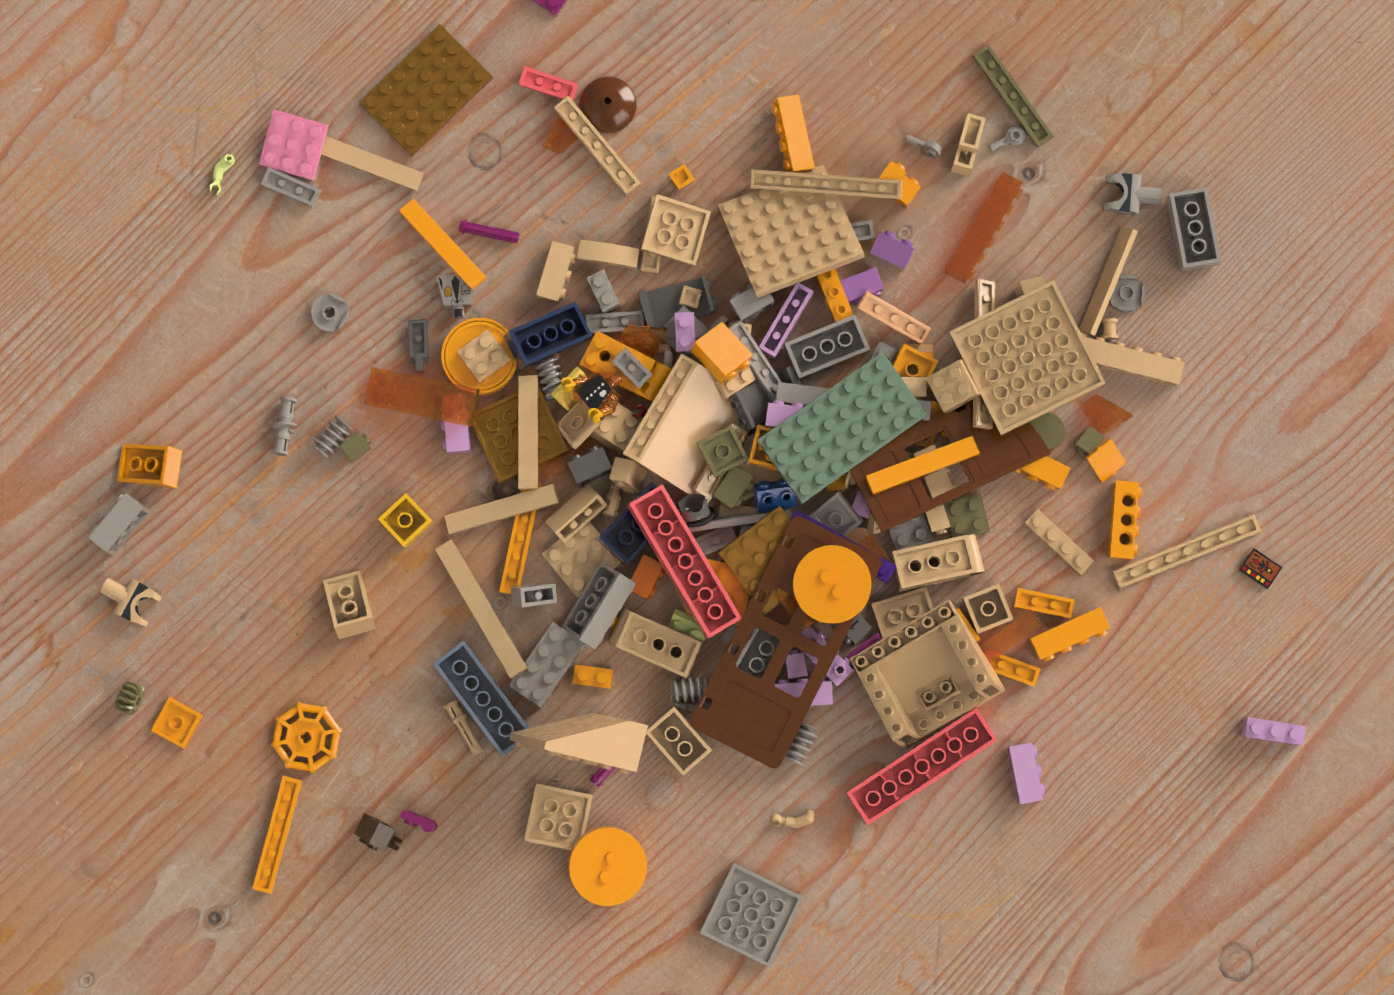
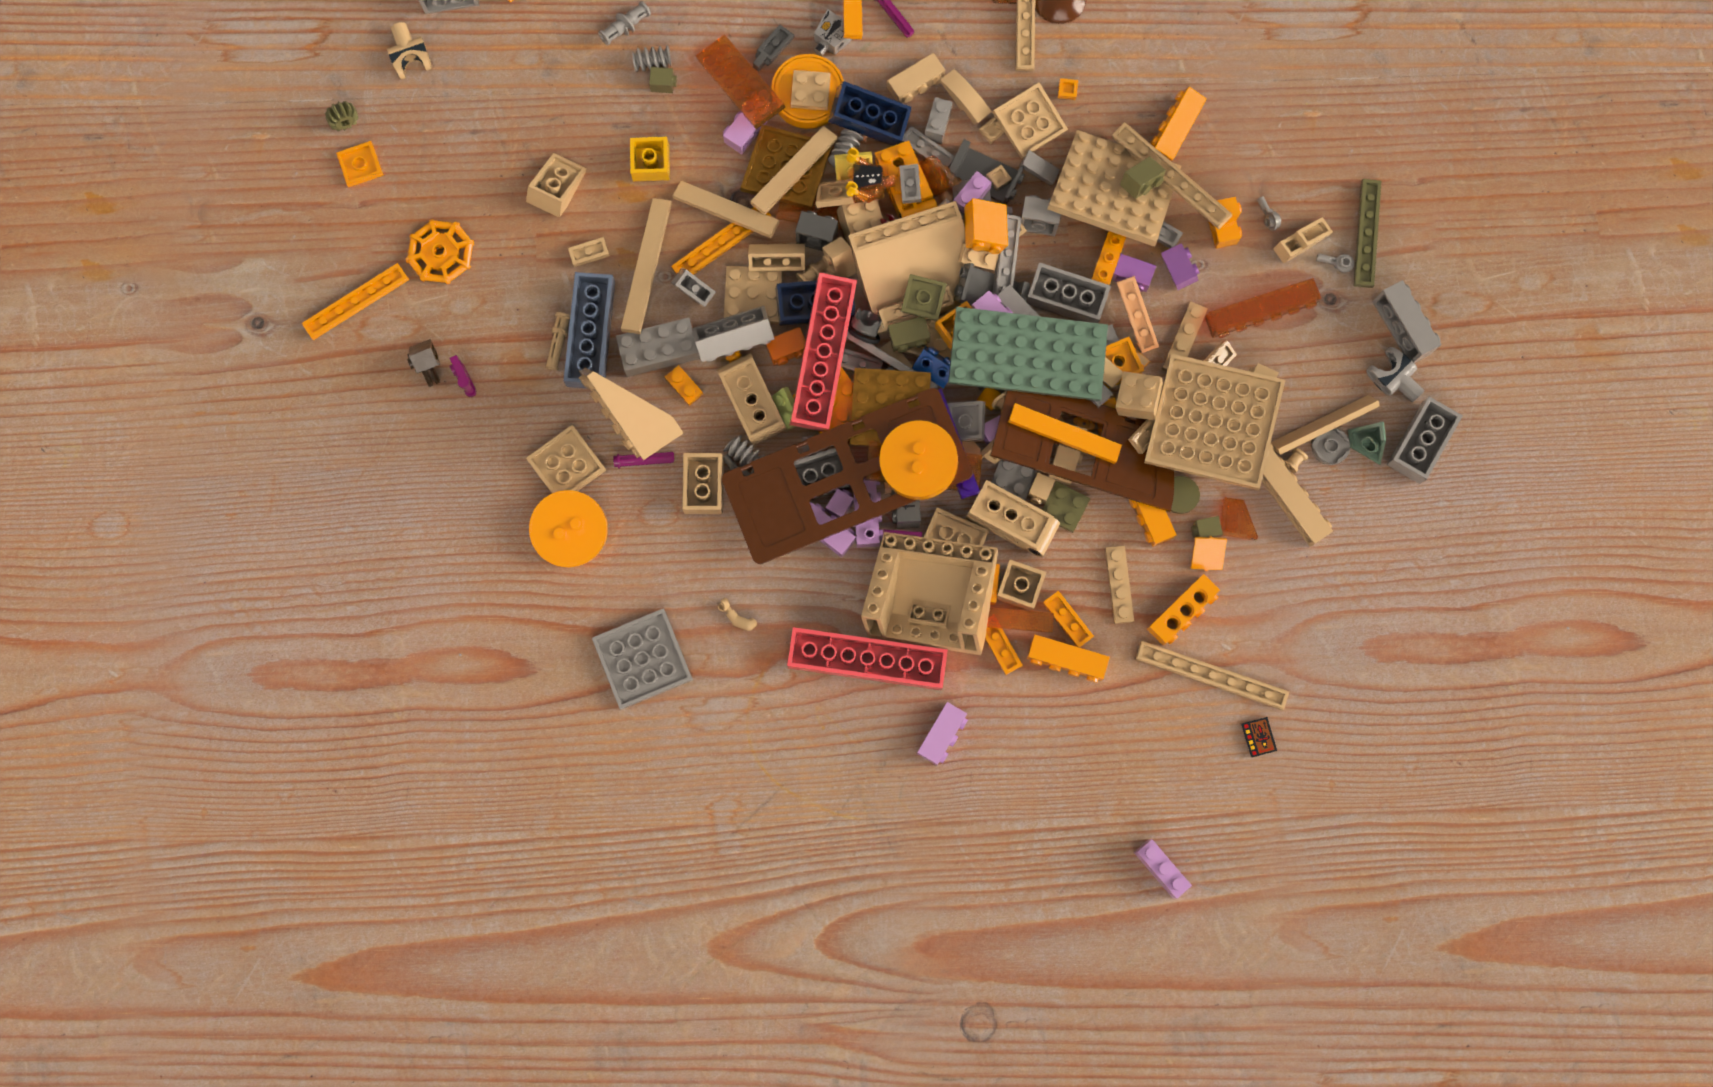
camera: 35 degrees right, 5 degrees down
(424, 636) = (588, 252): none -> tan plate
(716, 262) = (1040, 168): none -> light grey slope
(786, 320) = (1055, 250): lavender brick -> none
(801, 743) = (792, 564): light grey piece -> none
(807, 207) = (1143, 177): none -> olive brick
(942, 300) = (1187, 332): none -> tan plate
(1104, 146) = (1406, 322): none -> light grey brick
(1151, 265) = (1369, 440): none -> sand green slope

